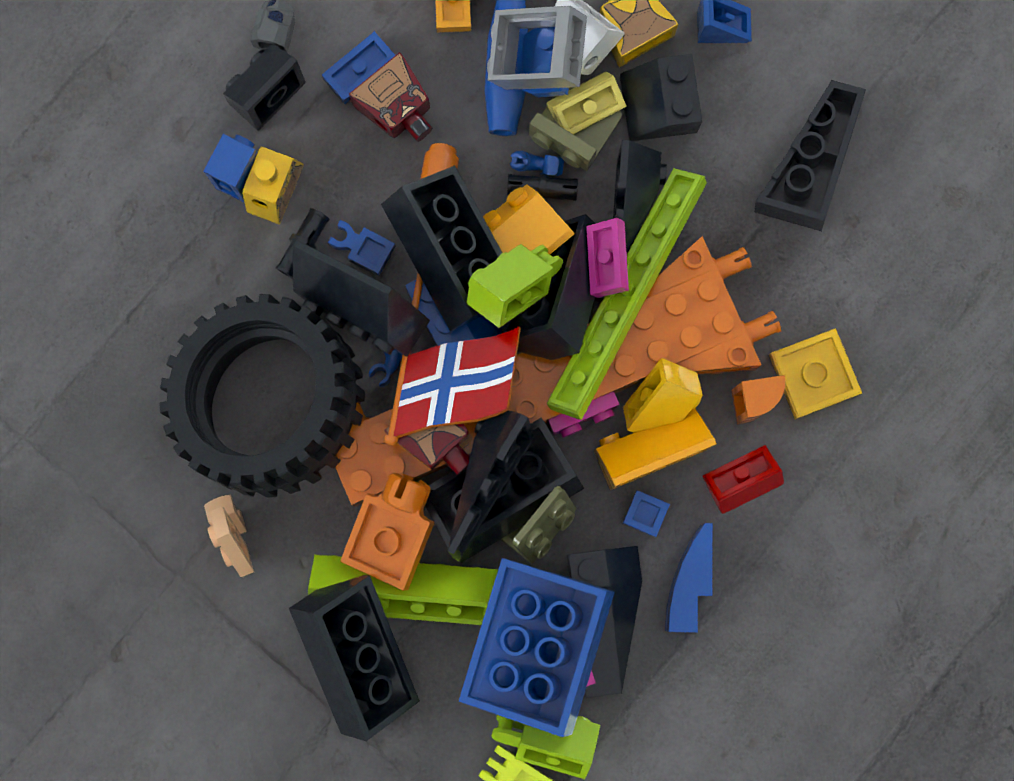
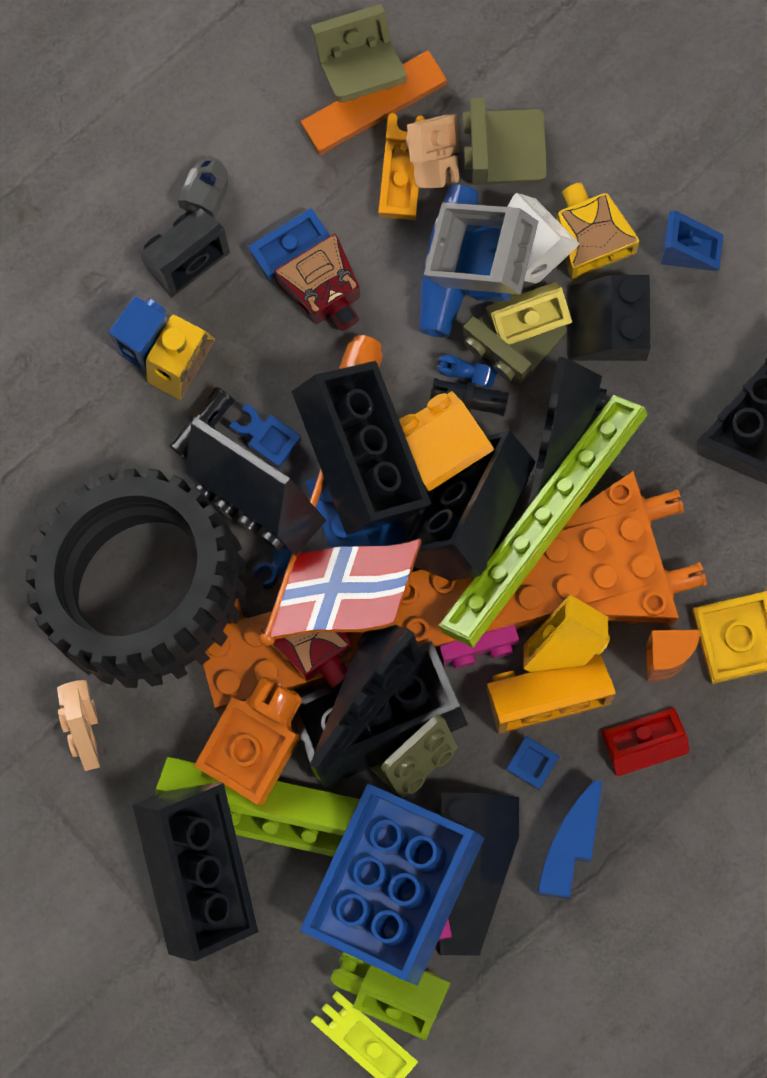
camera: 15 degrees right, 5 degrees down
(512, 283) = (419, 491): lime brick -> none
(607, 258) = (526, 480): dark pink plate -> none

